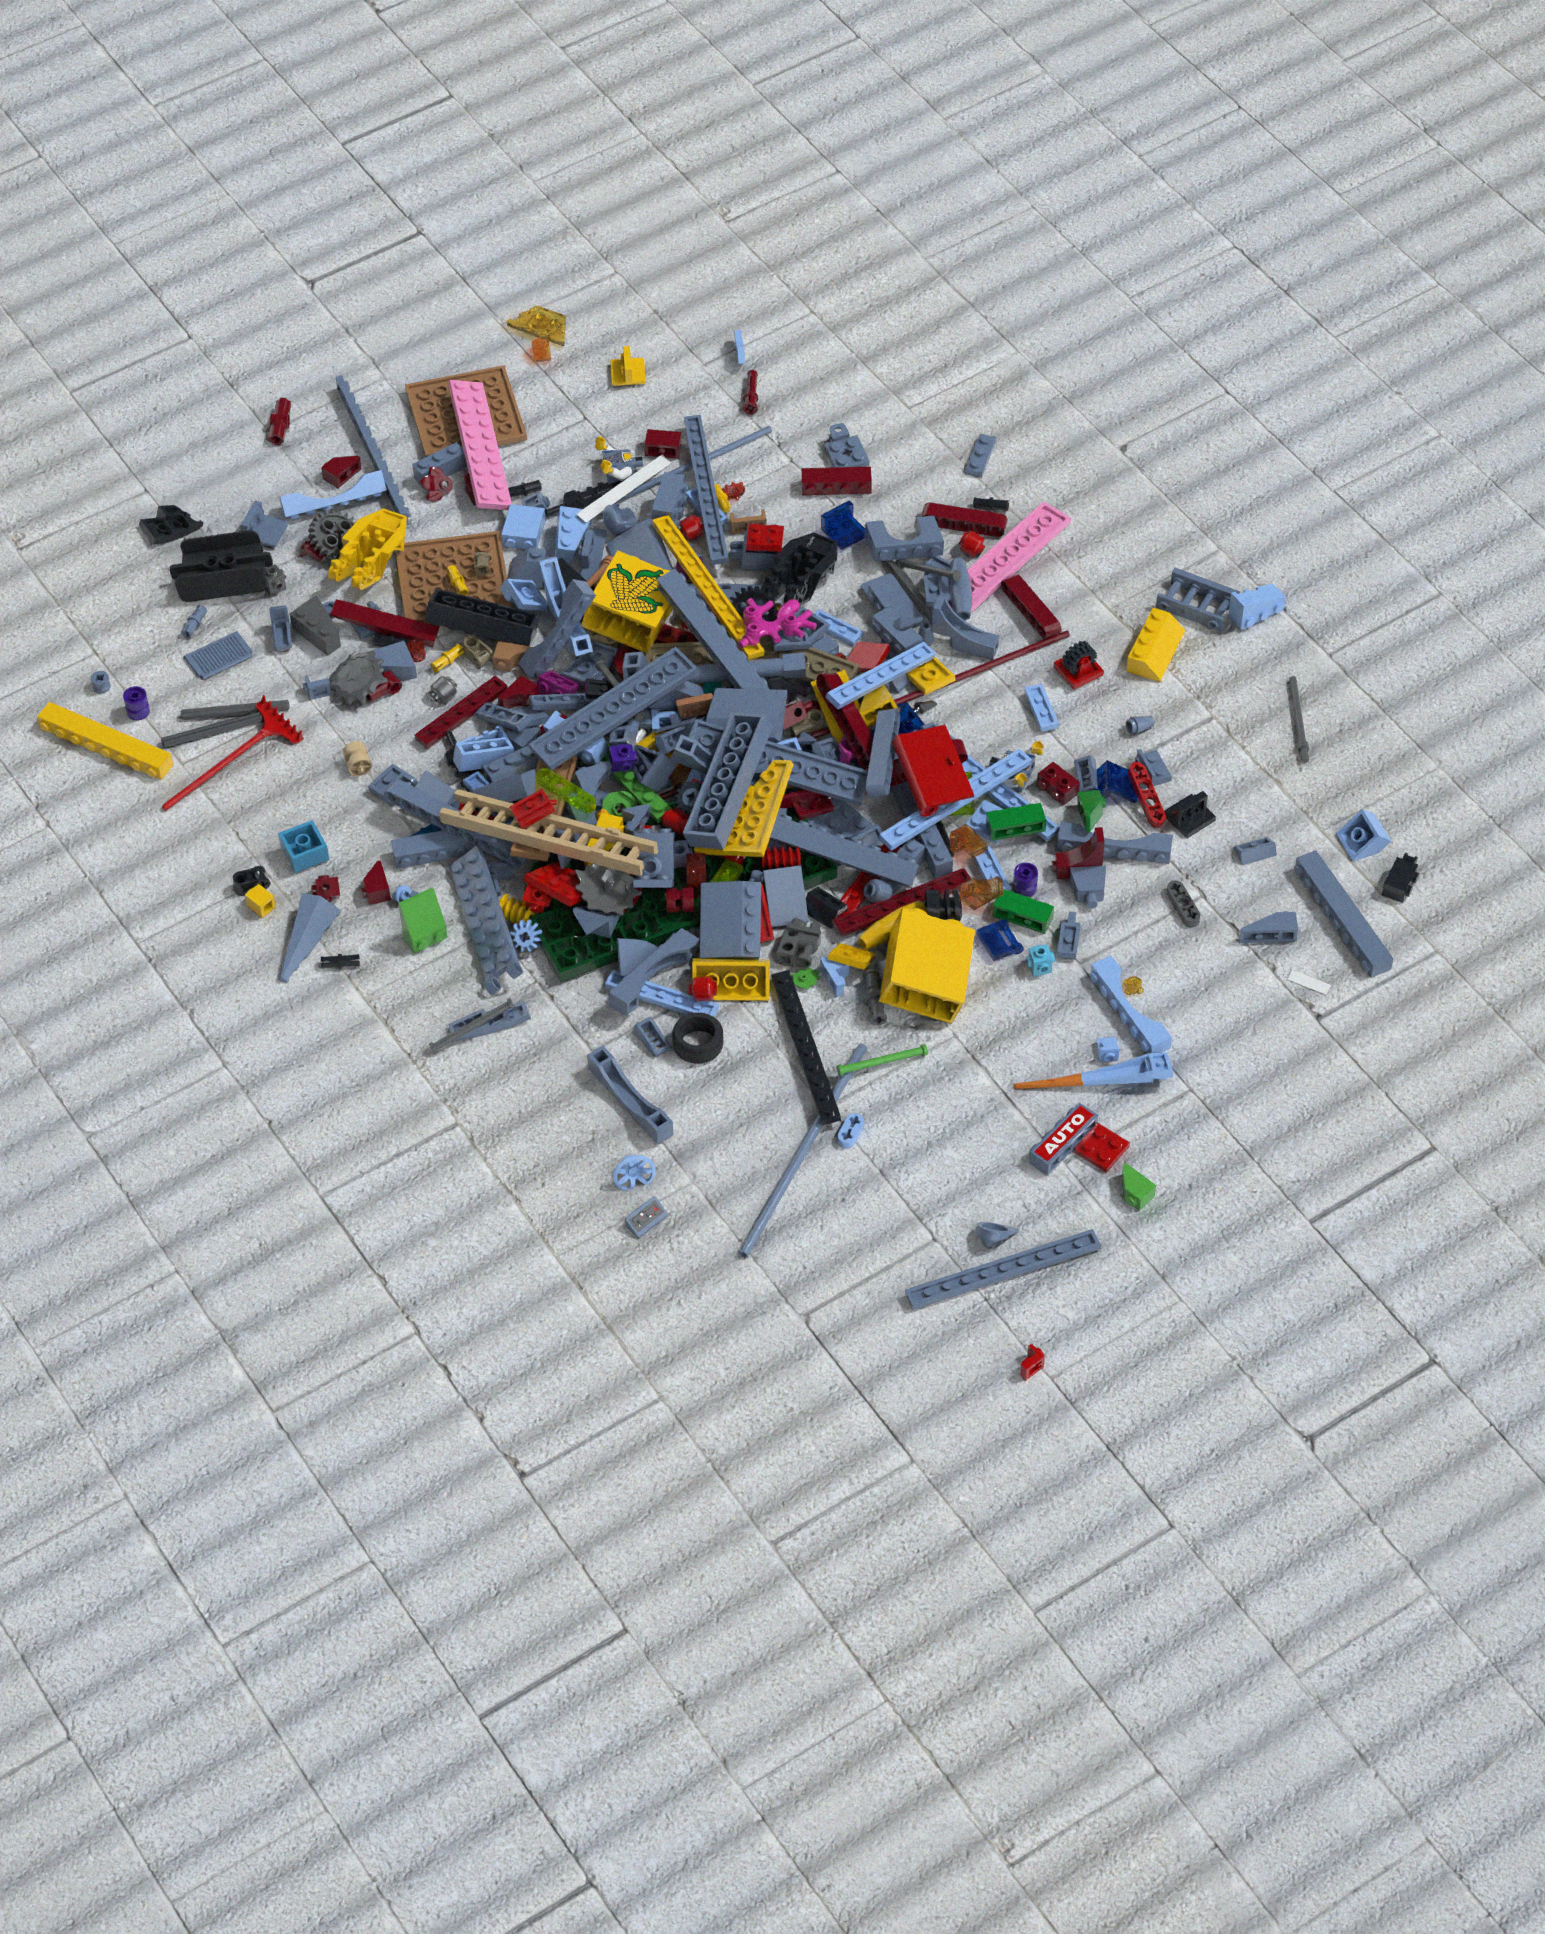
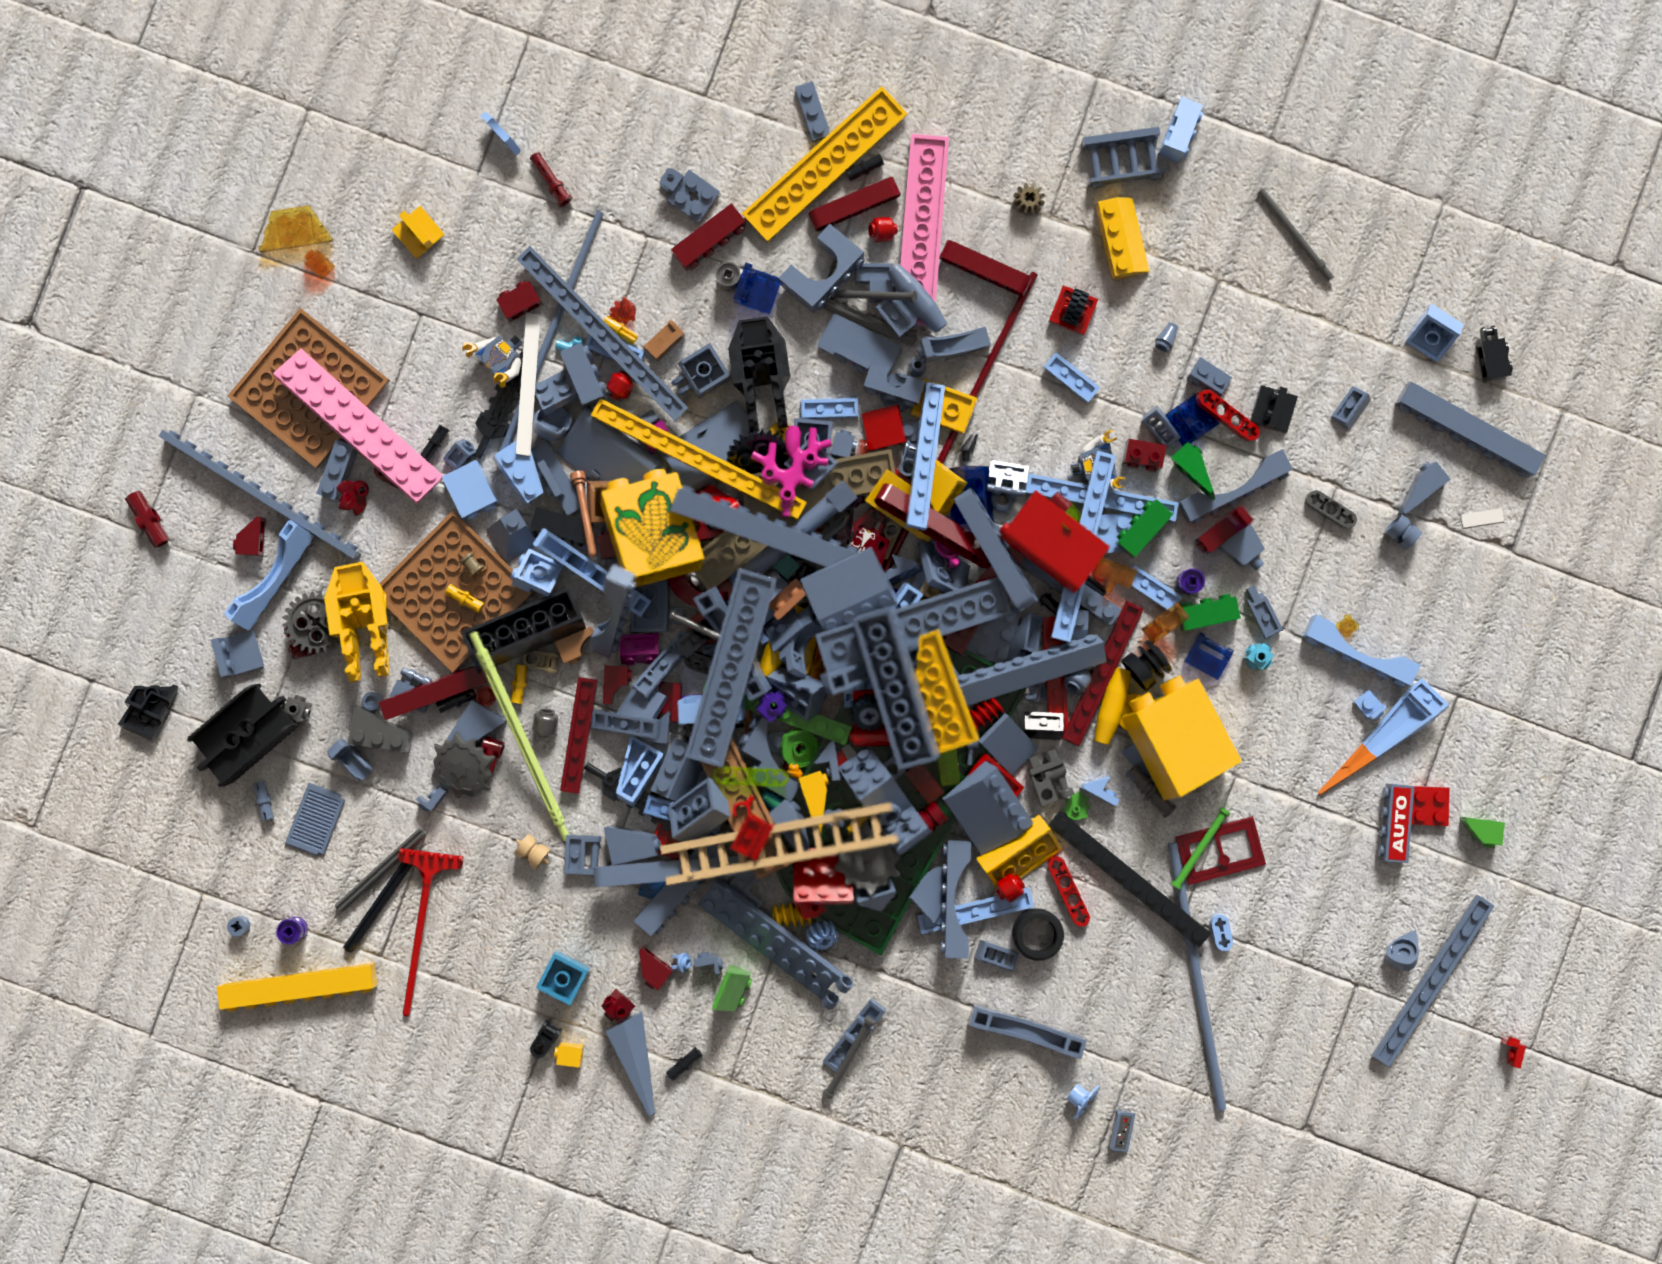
camera: 40 degrees left, 35 degrees up
(418, 672) = (519, 735): none -> yellowish green axle
(633, 502) = (555, 392): none -> sand blue plate
(751, 1029) = (1070, 890): none -> red beam
(765, 537) = (707, 365): red plate -> none
(828, 501) = (728, 276): none -> flat silver wheel
(840, 880) = (1037, 692): none -> sand blue plate
(851, 956) = (1103, 764): yellow tile -> none
(901, 1079) = (1231, 850): none -> dark red door
(962, 486) = (824, 164): none -> yellow plate
(1101, 585) = (1030, 205): none -> dark tan gear
(1231, 946) = (1403, 532): none -> sand blue wheel

